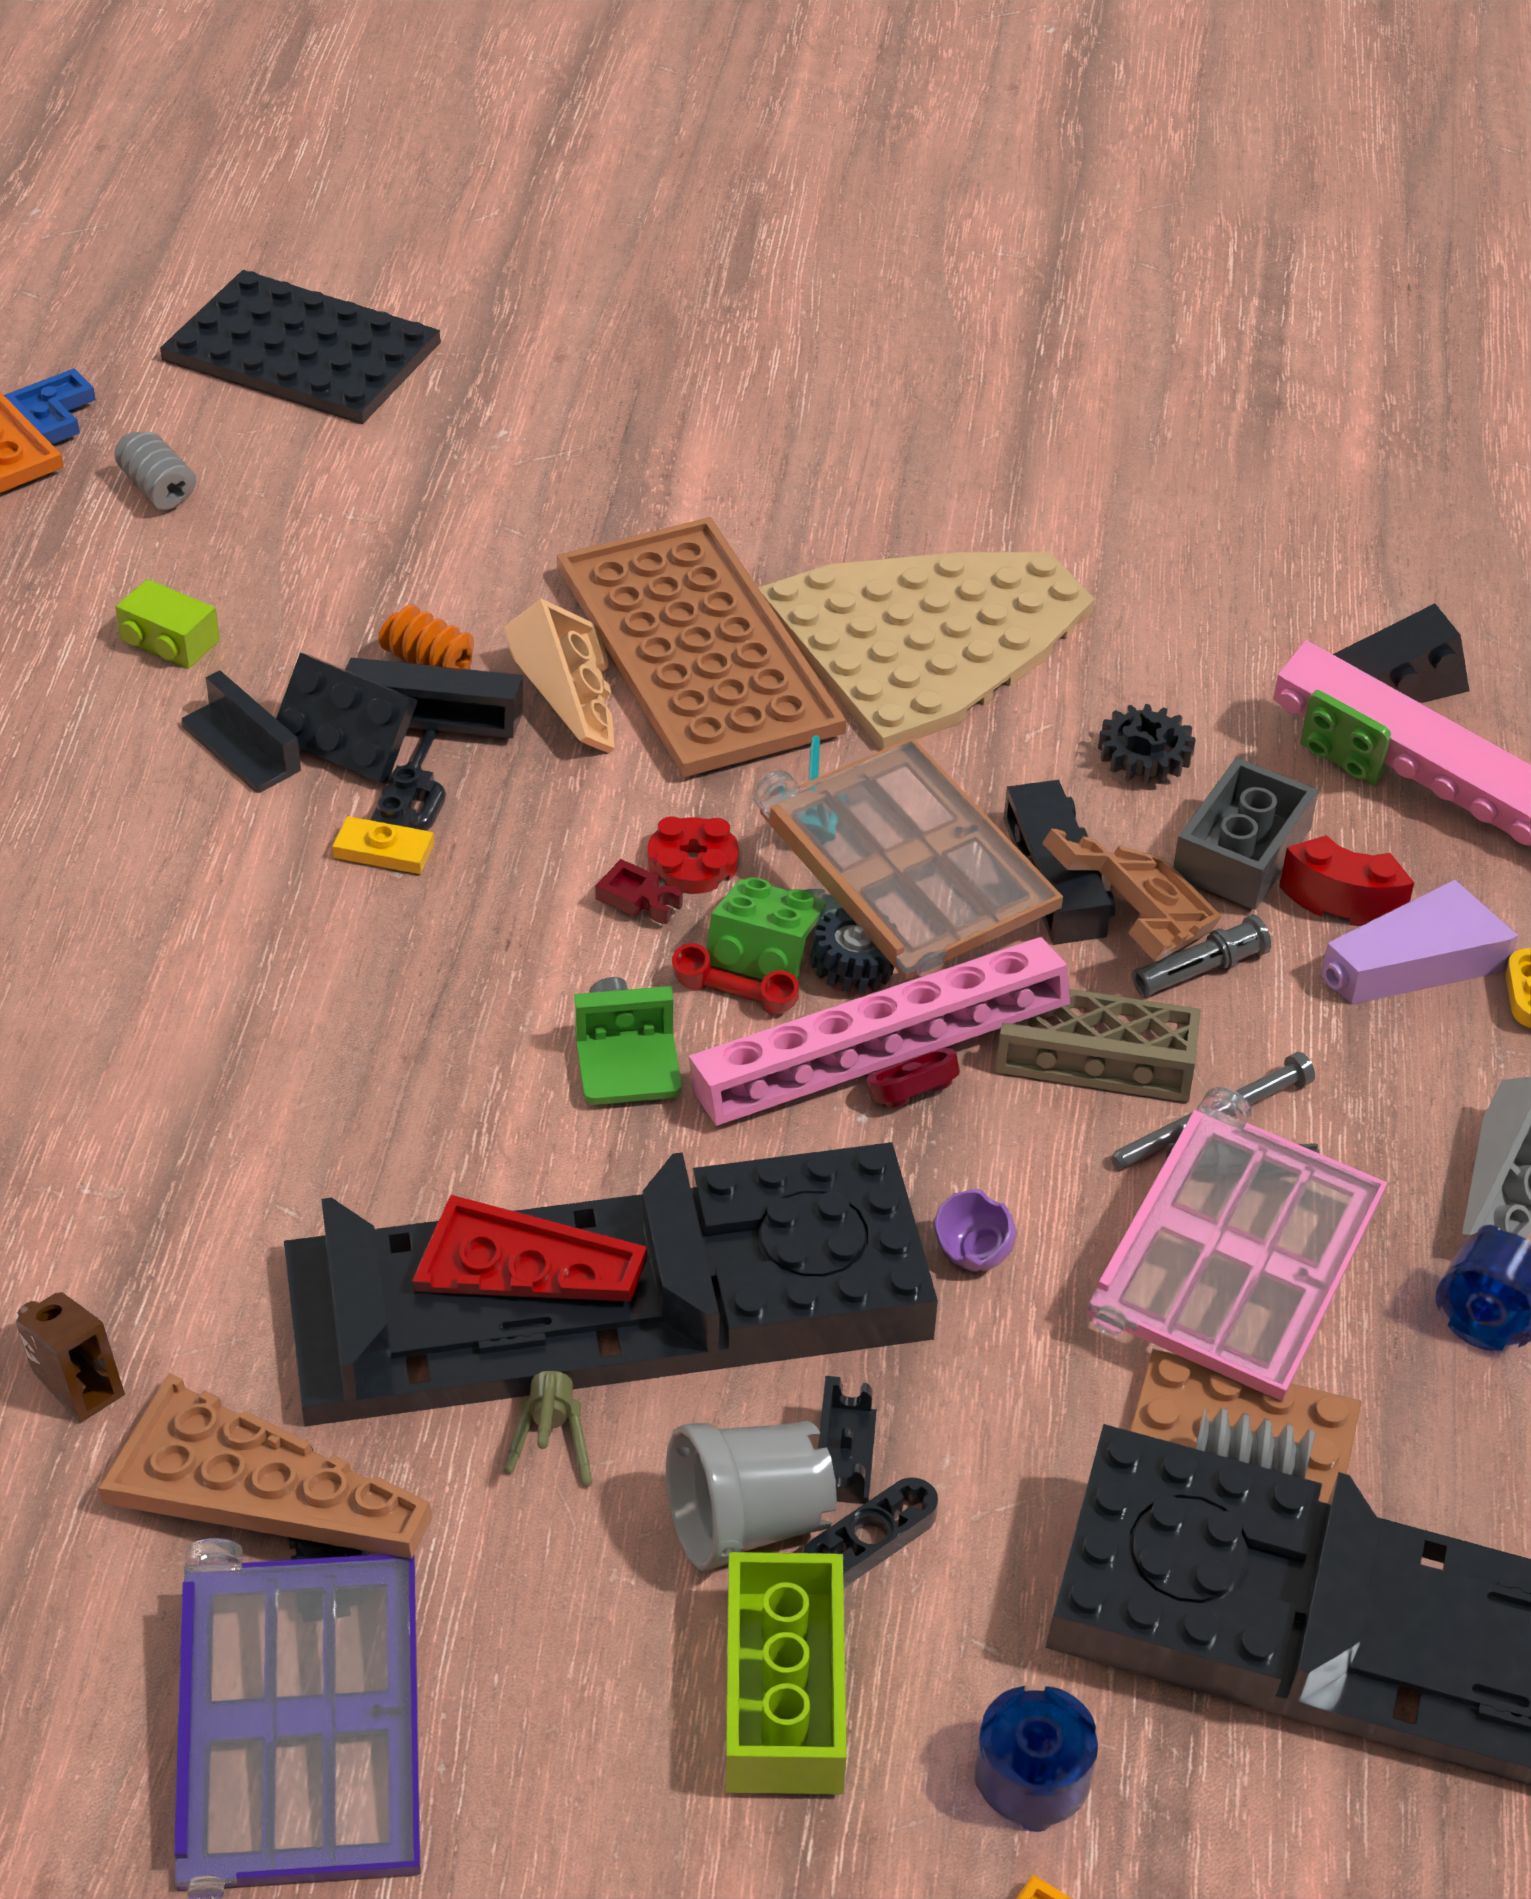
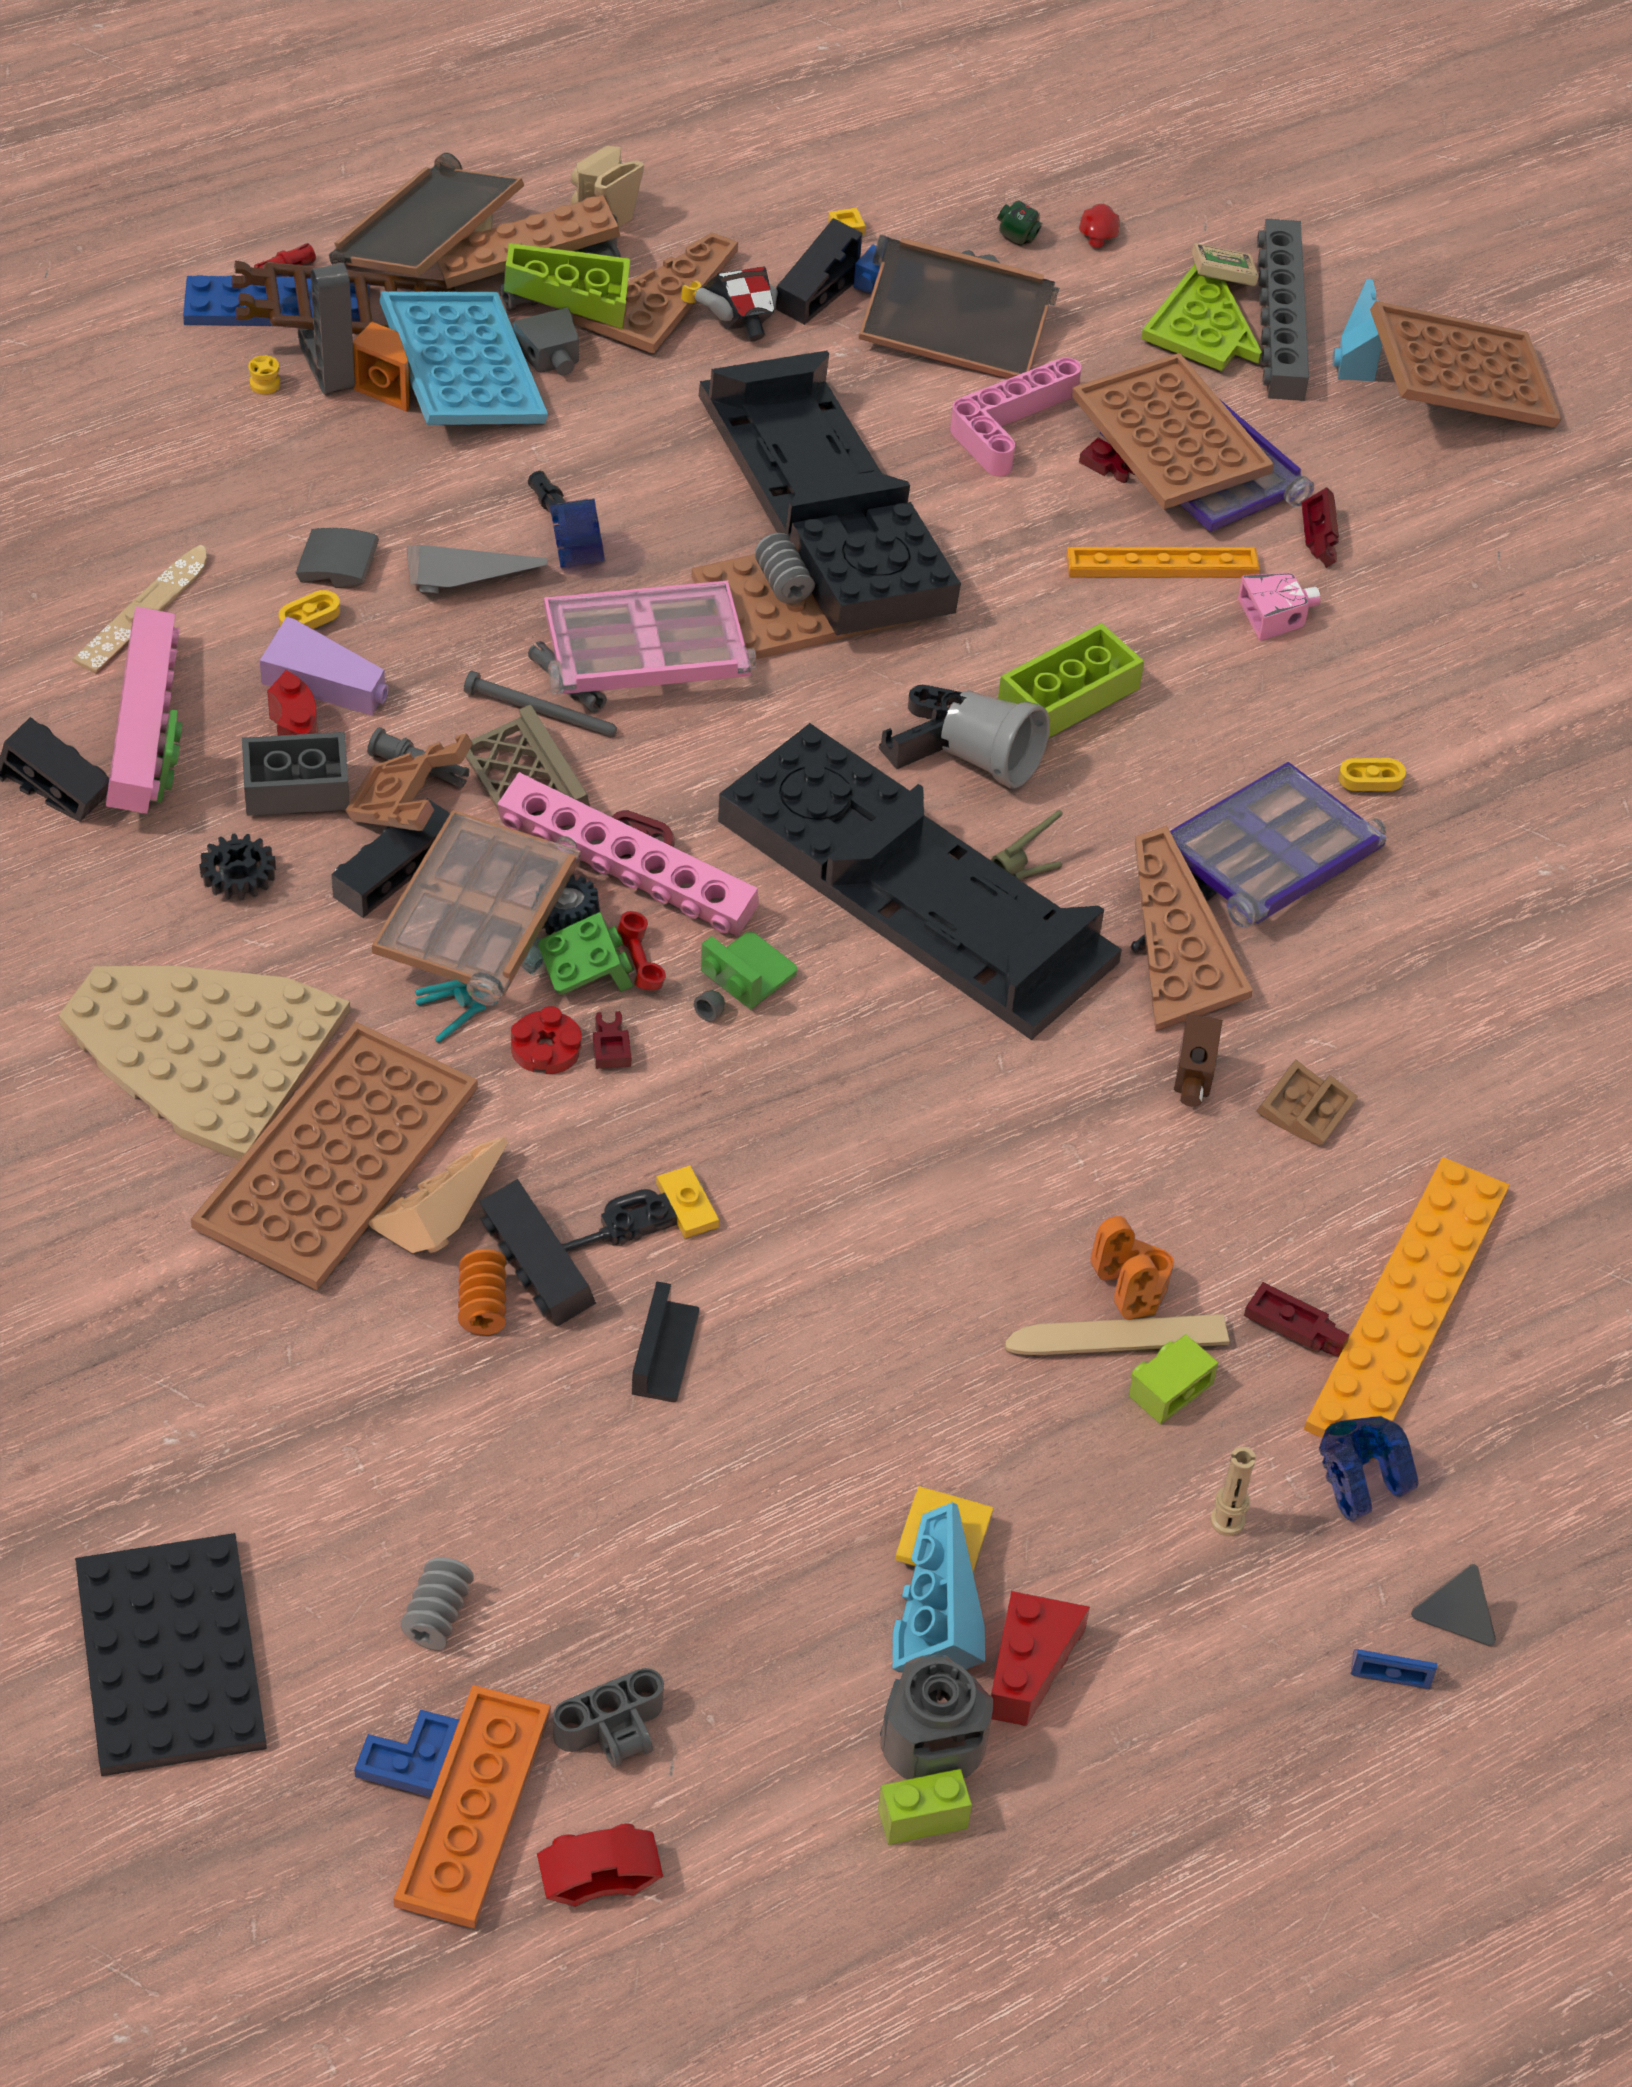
camera: 130 degrees left, 5 degrees up
(167, 623) = (599, 1465): lime brick -> none
(345, 717) = (610, 1275): black plate -> none
(516, 1254) = (951, 900): red wing -> none
(974, 1230) = (733, 749): medium lavender hair -> none
(1036, 1756) = (1020, 582): clear blue brick -> none

